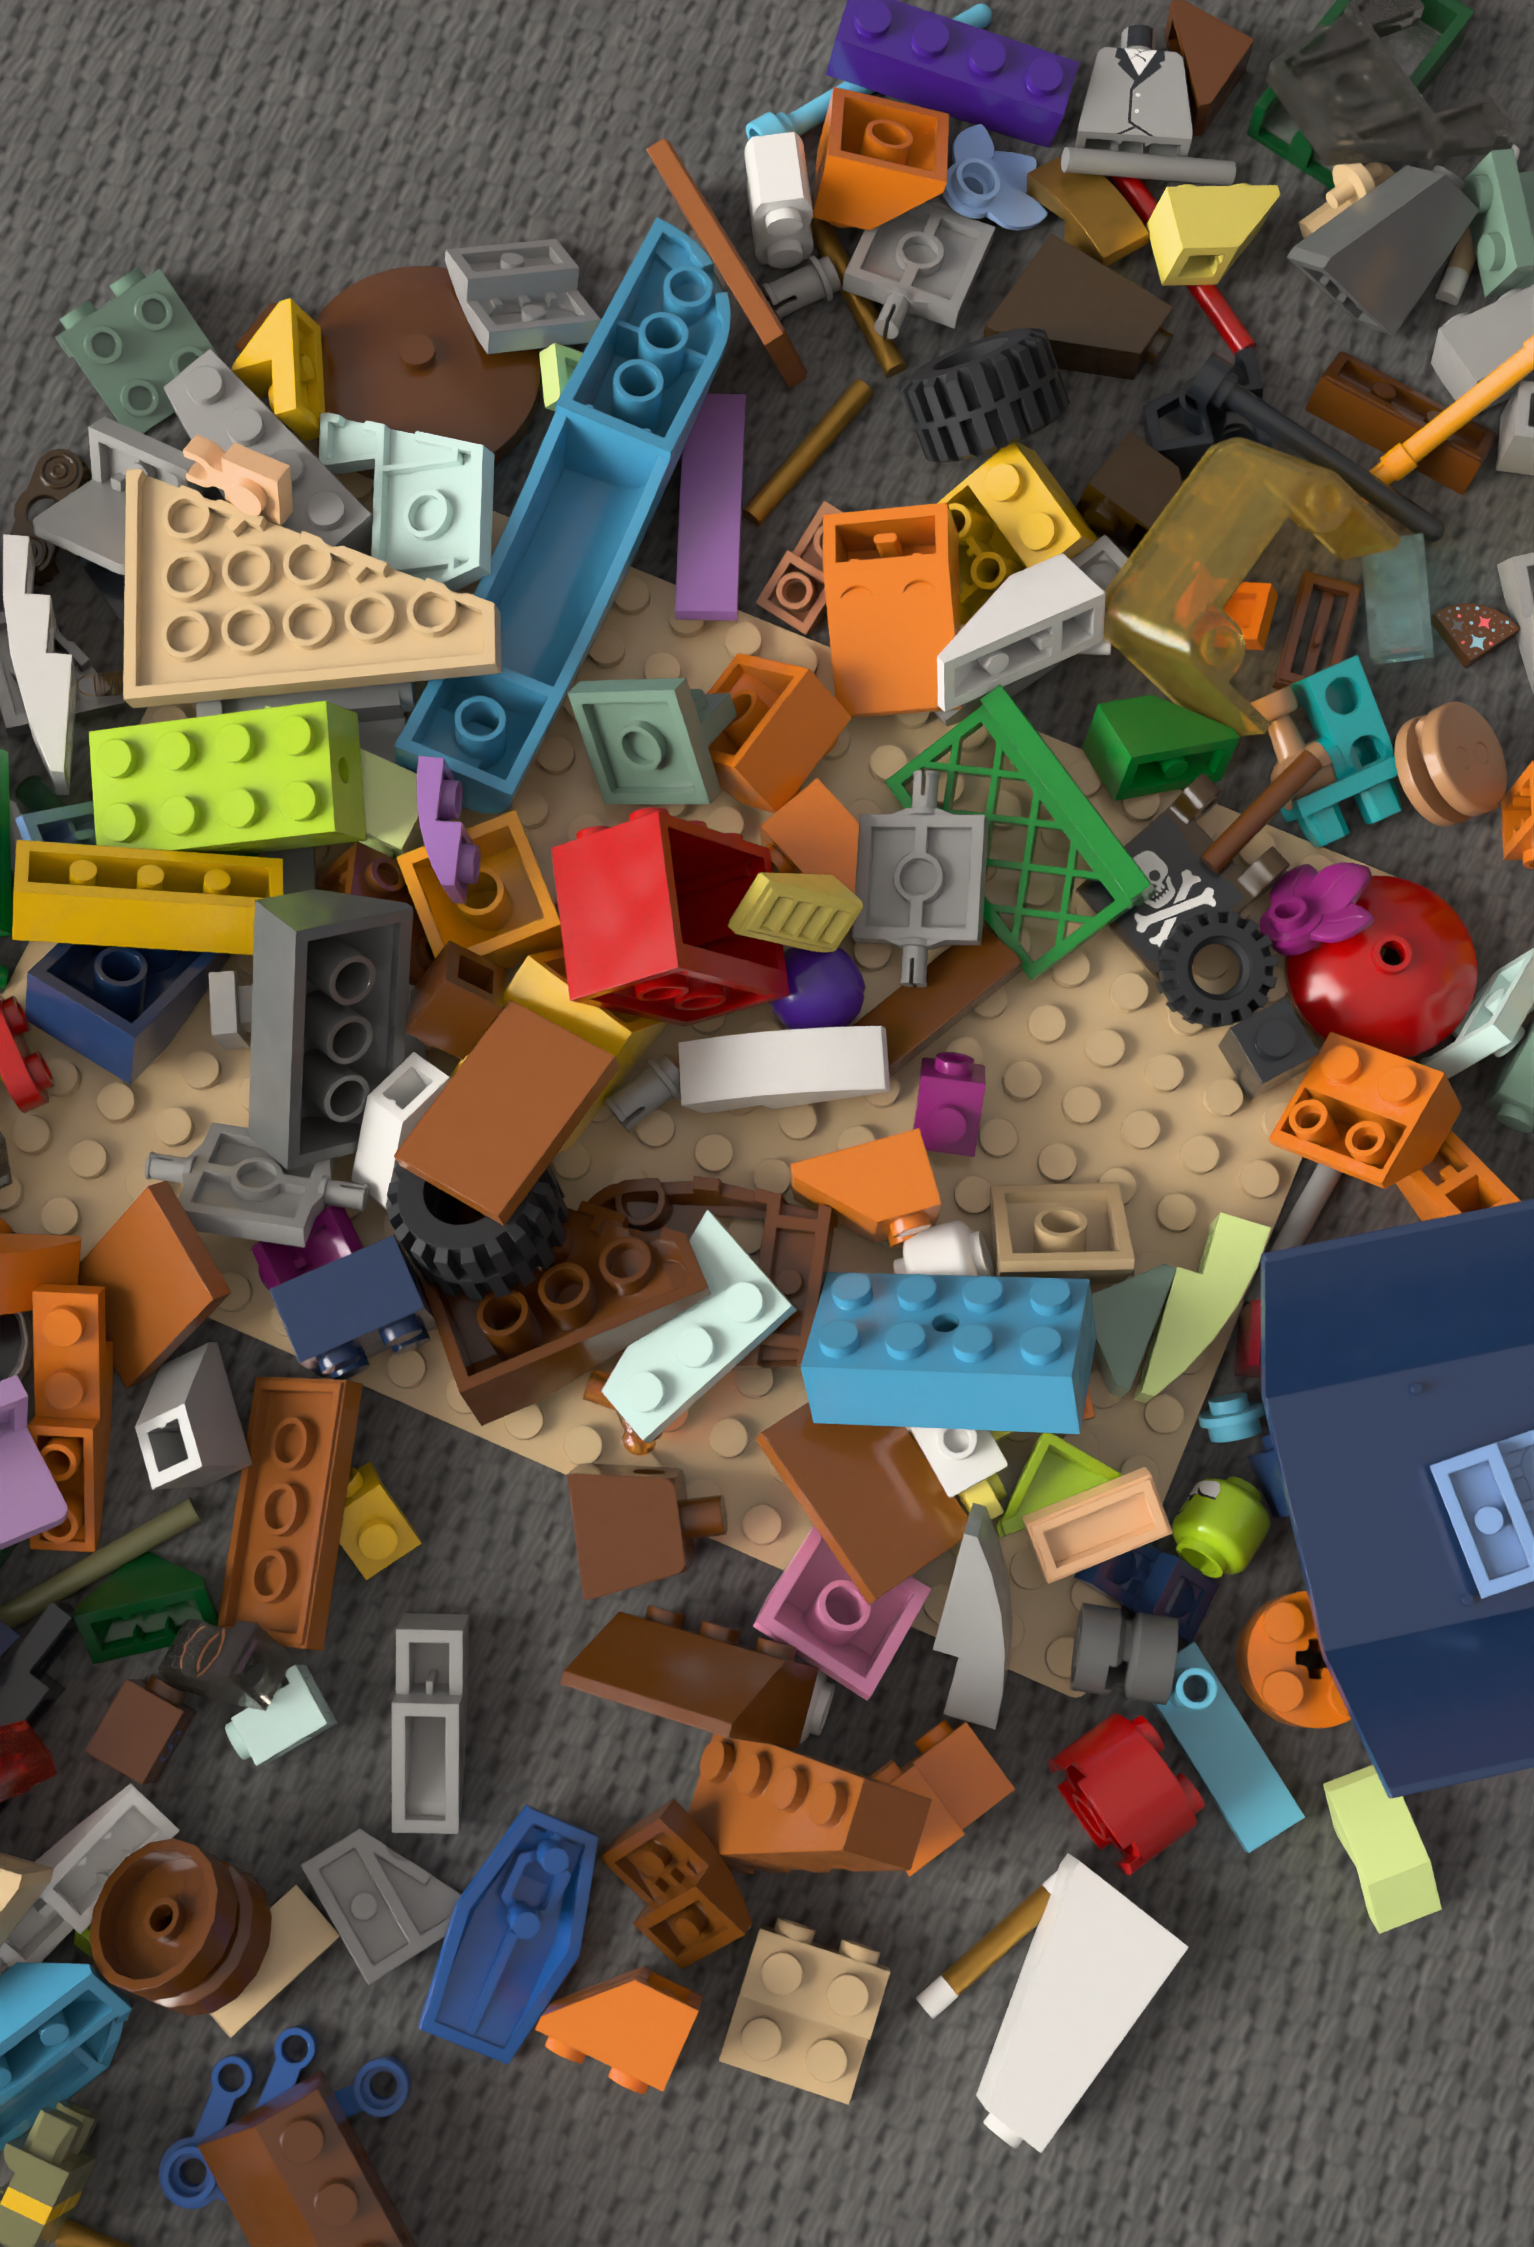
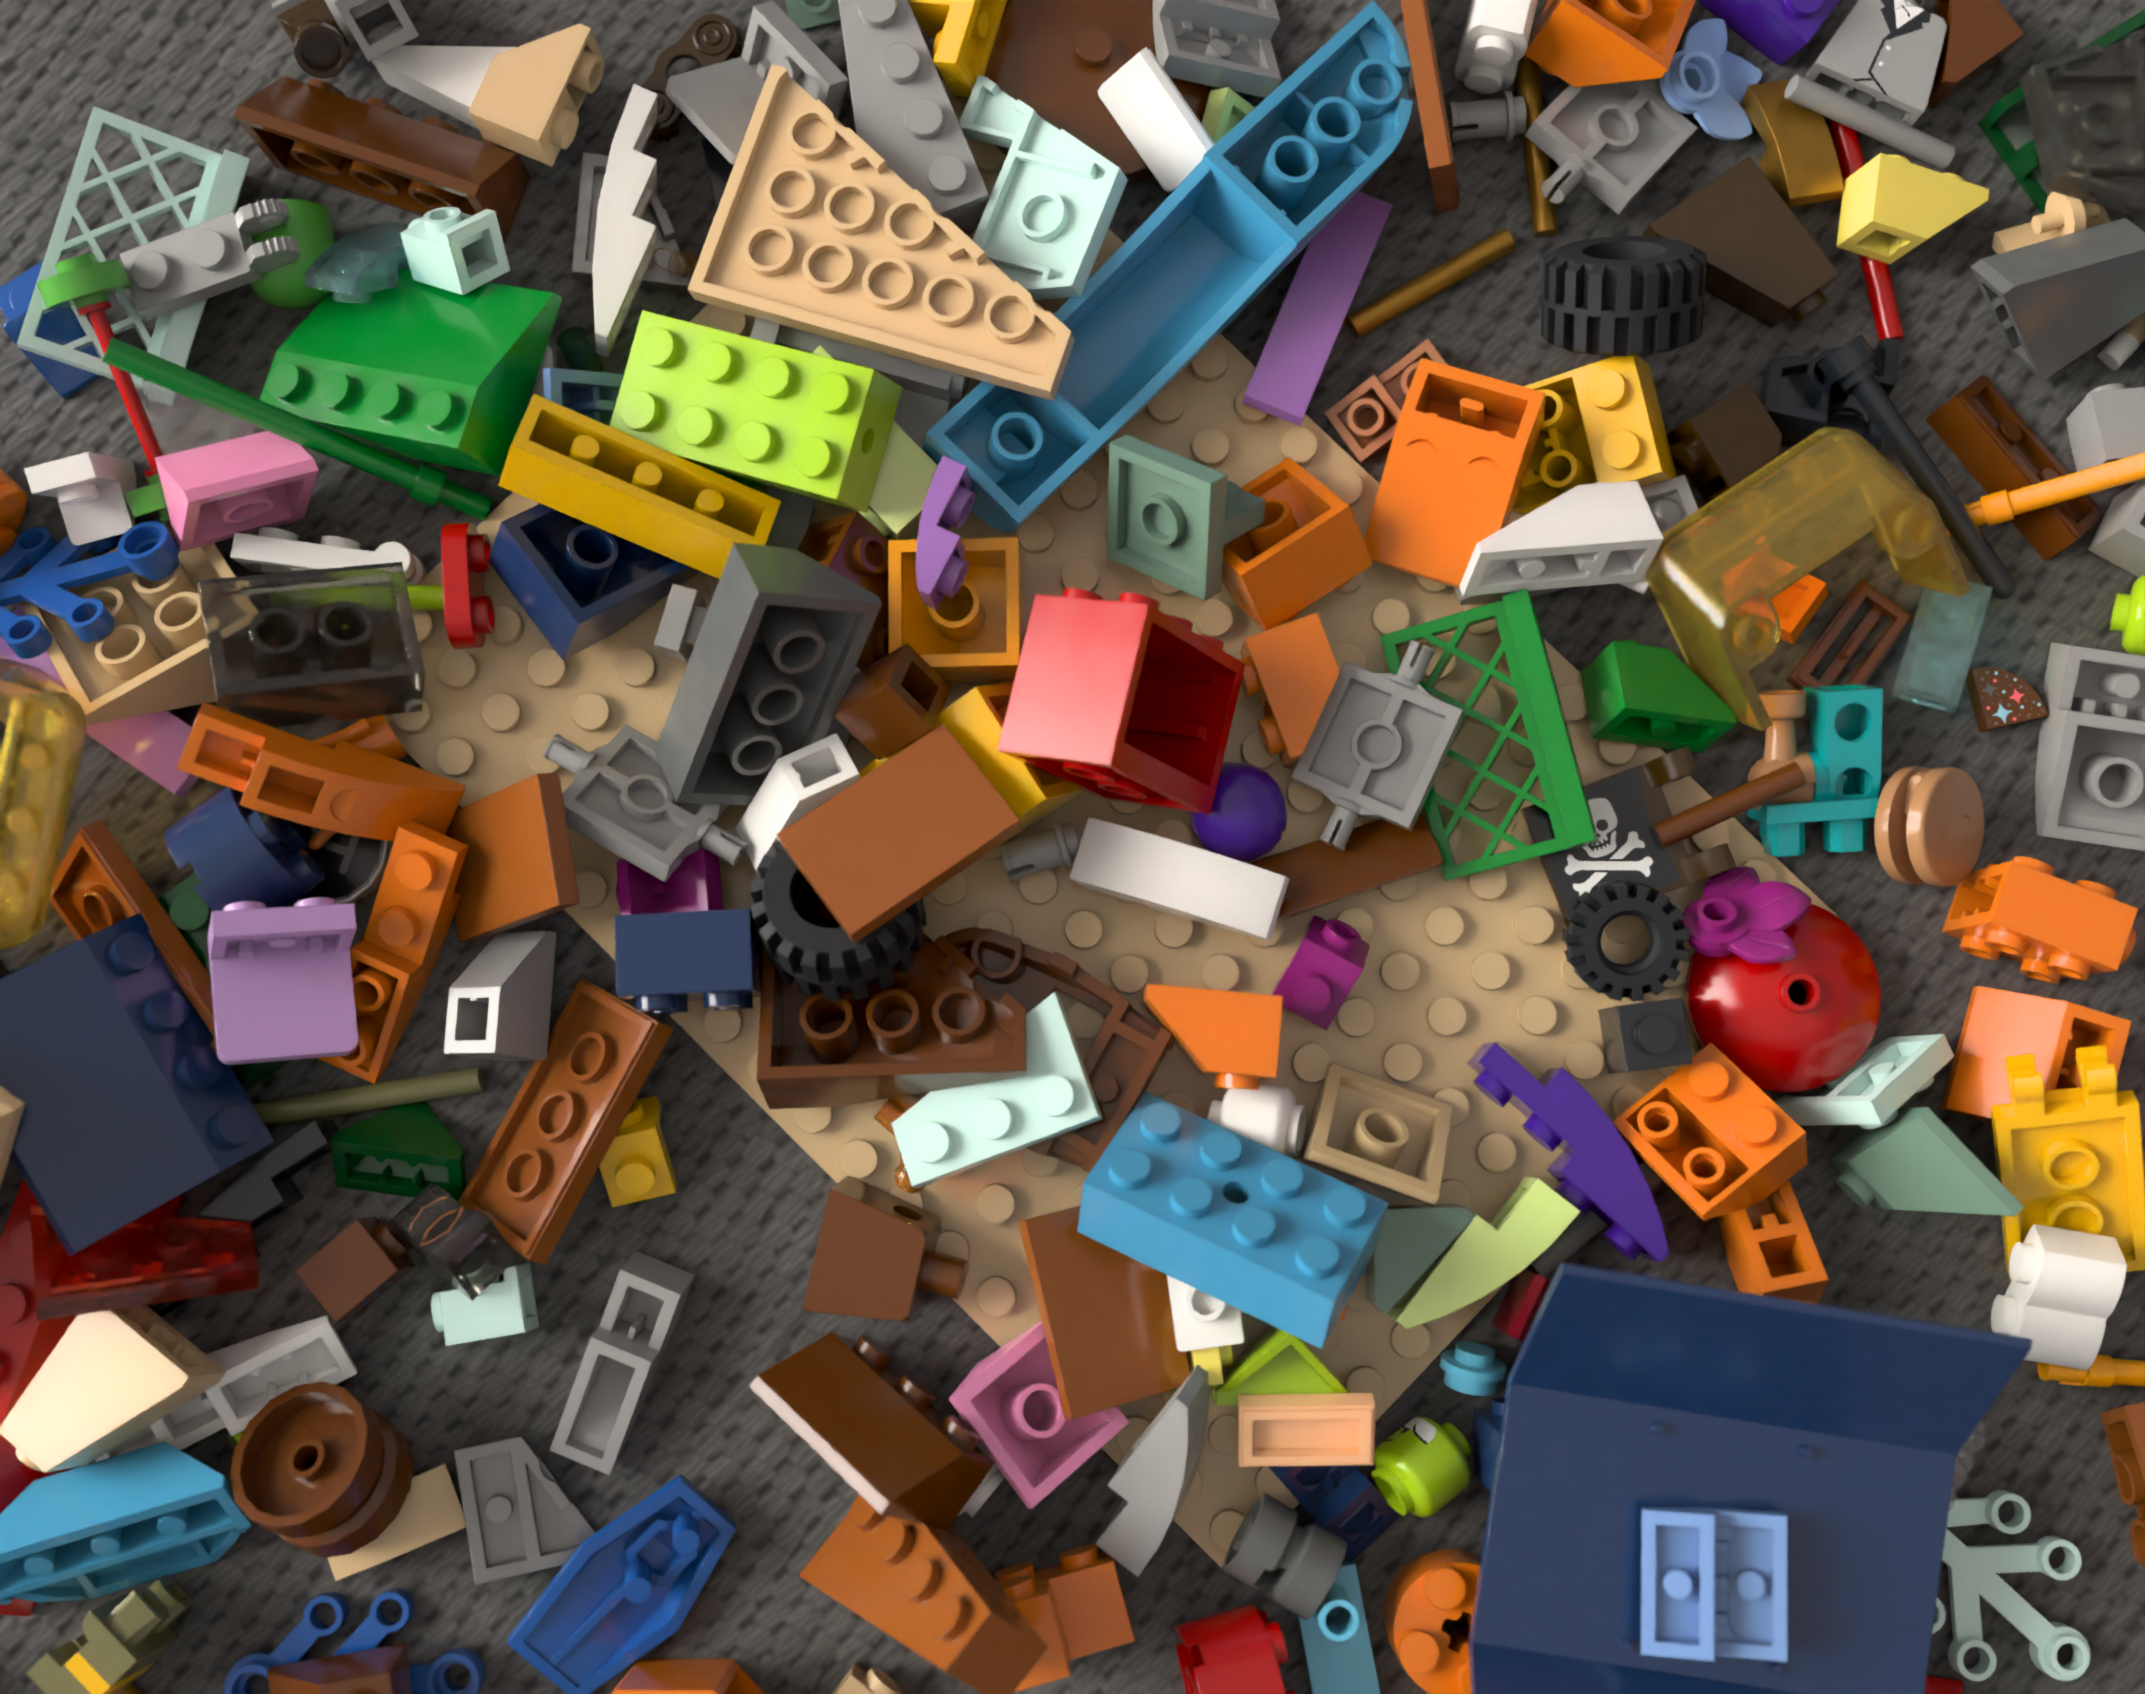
camera: 15 degrees right, 5 degrees up
(250, 479) = (884, 119): light nougat plate -> none
(498, 393) = (1156, 119): none -> white slope
(683, 1880) = (797, 1612): reddish brown slope -> none
(797, 911) = (1248, 739): light yellow slope -> none
(1270, 1180) = (1595, 1164): none -> dark purple slope

